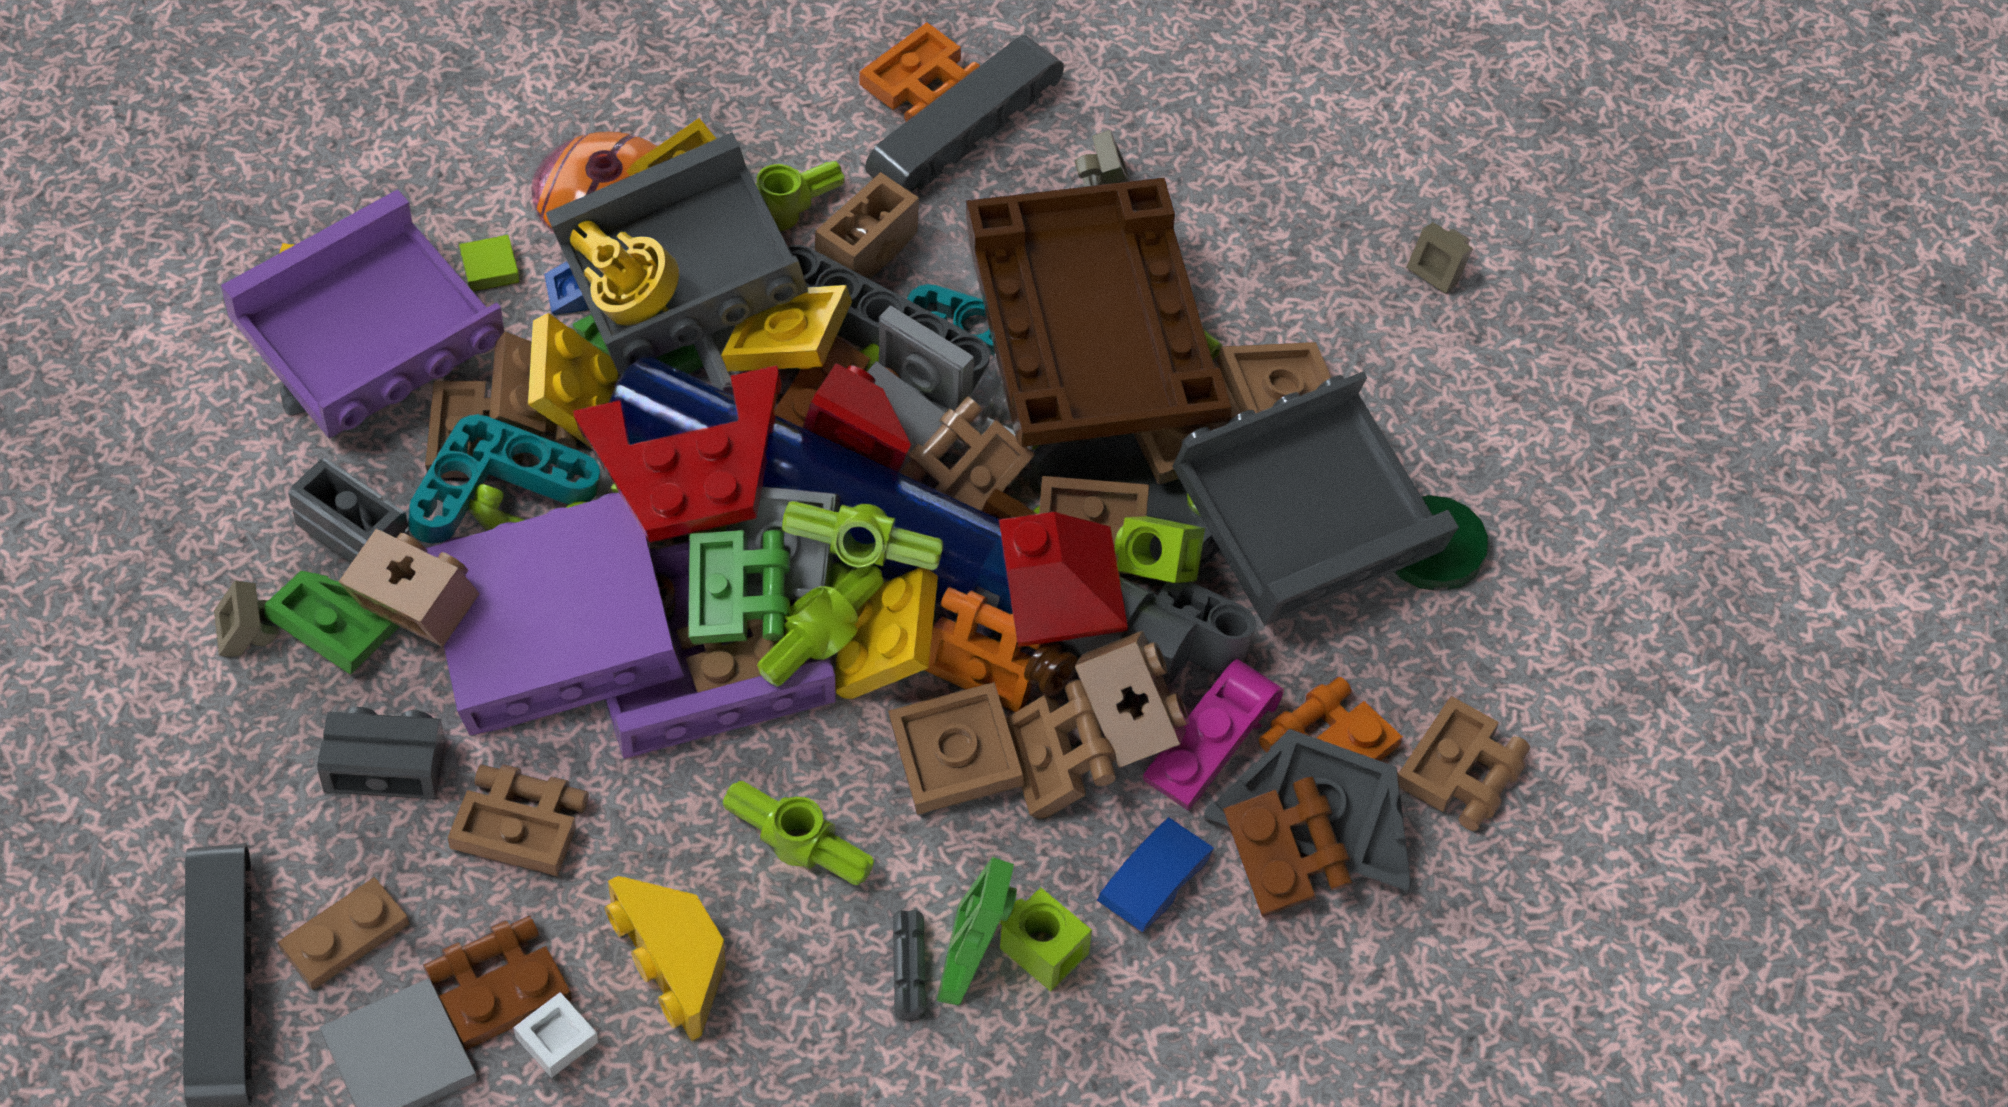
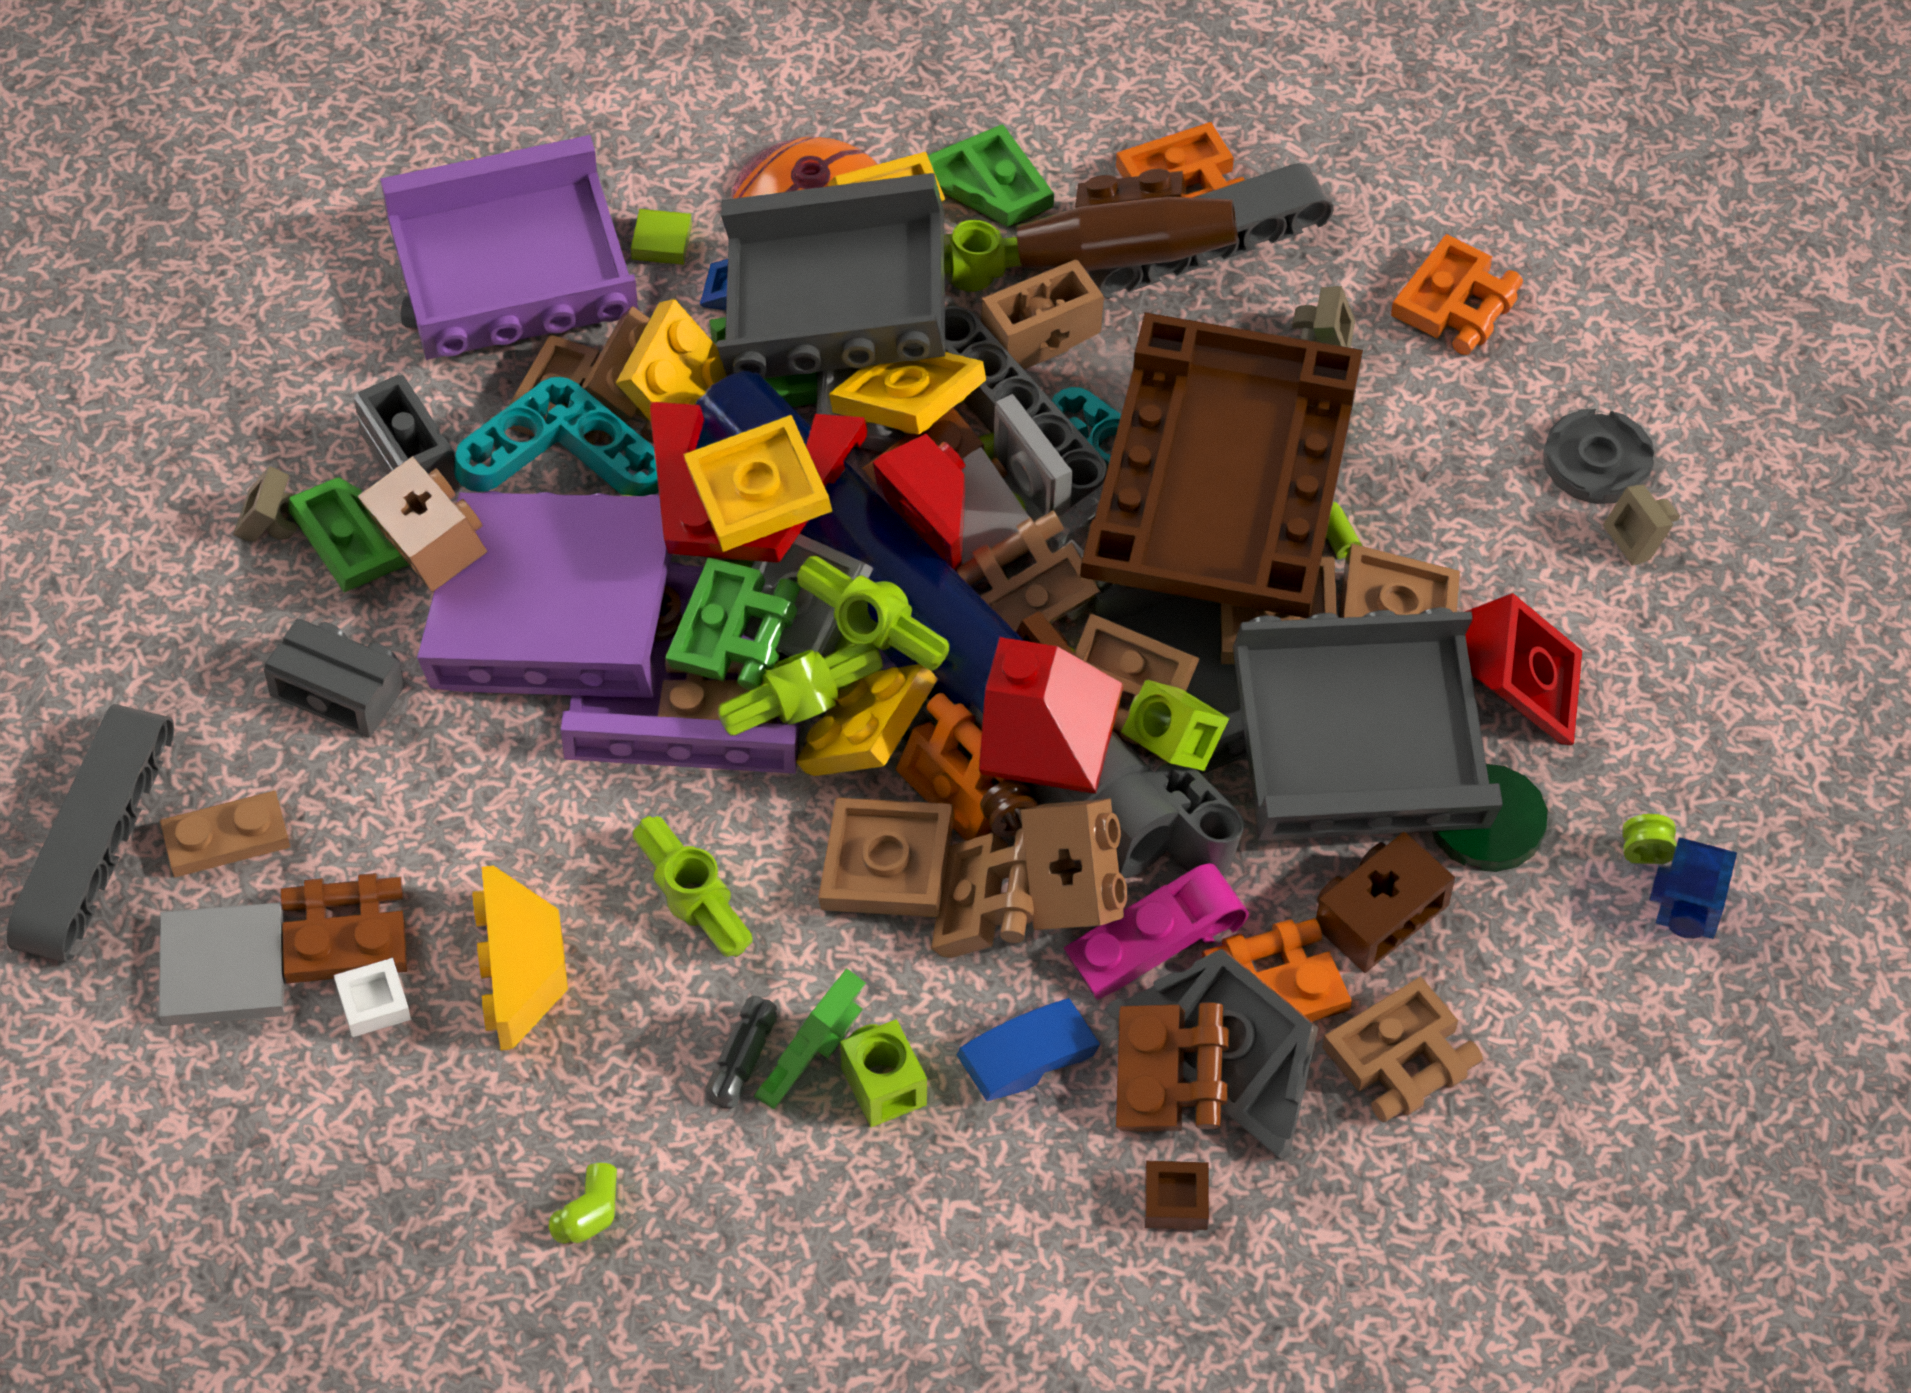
camera: 25 degrees right, 0 degrees up
(485, 507) = (538, 472): lime arm -> none
(513, 831) = (426, 794): medium nougat plate -> none
(634, 281) = (769, 290): yellow pin -> none
(716, 452) = (757, 483): none -> yellow plate
(763, 122) = (992, 177): none -> bright green wing
(909, 129) = (1128, 225): none -> reddish brown plate
(1184, 104) = (1445, 283): none -> orange plate
(1340, 955) = (1177, 1195): none -> reddish brown plate
(1373, 224) = (1594, 470): none -> dark grey tile
(1389, 641) = (1383, 900): none -> reddish brown brick
(1410, 404) = (1526, 664): none -> red slope
(1574, 517) = (1649, 839): none -> lime bush
(1630, 546) = (1693, 889): none -> clear blue brick

